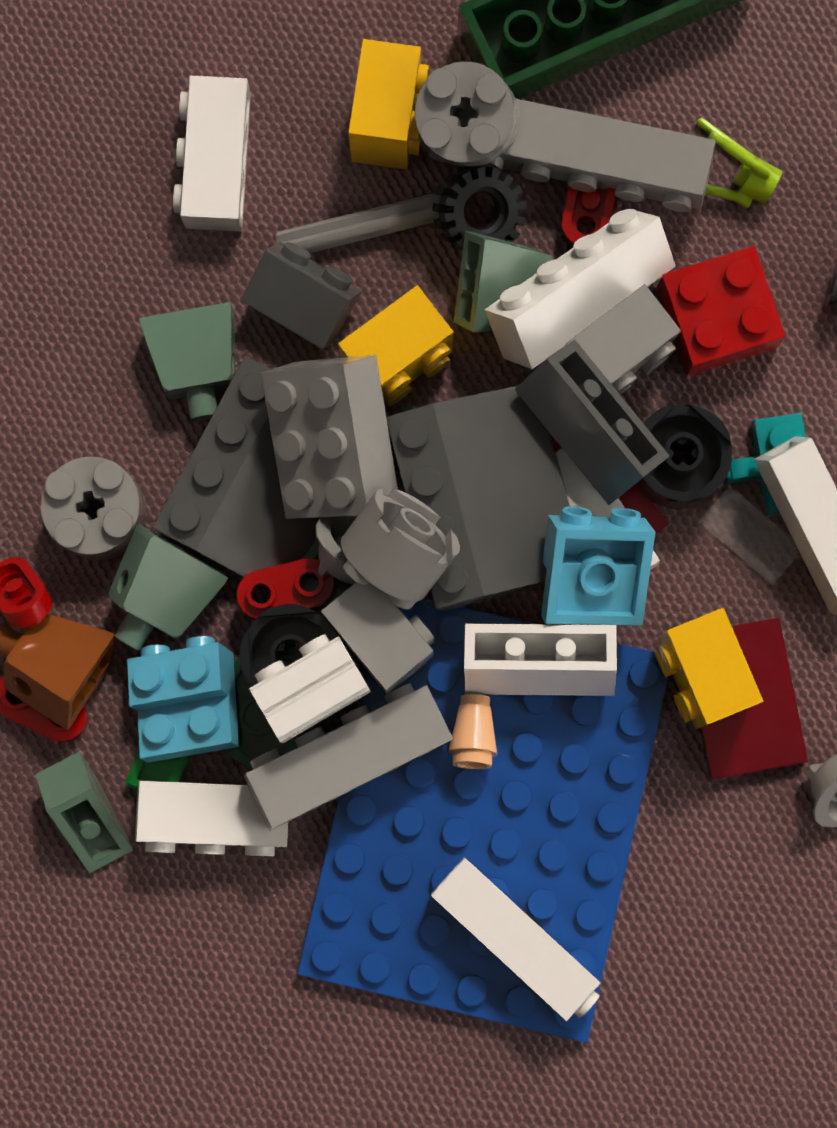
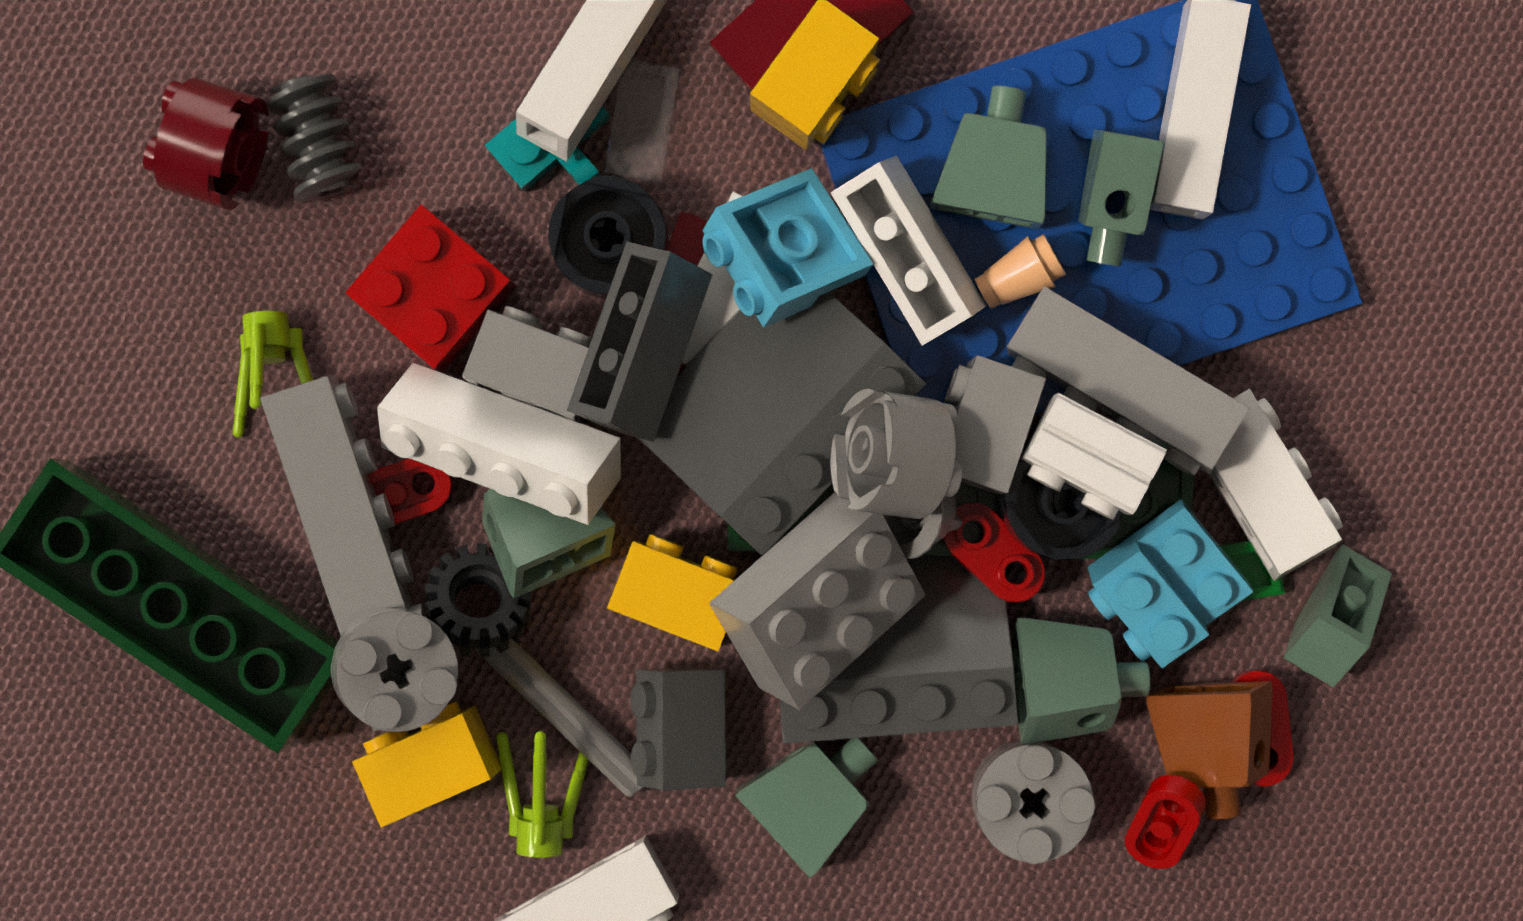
camera: 120 degrees left, 5 degrees up
(298, 157) = (539, 827): none -> lime plant
(504, 851) = (1113, 165): none -> sand green torso
(564, 762) = (996, 165): none -> sand green torso

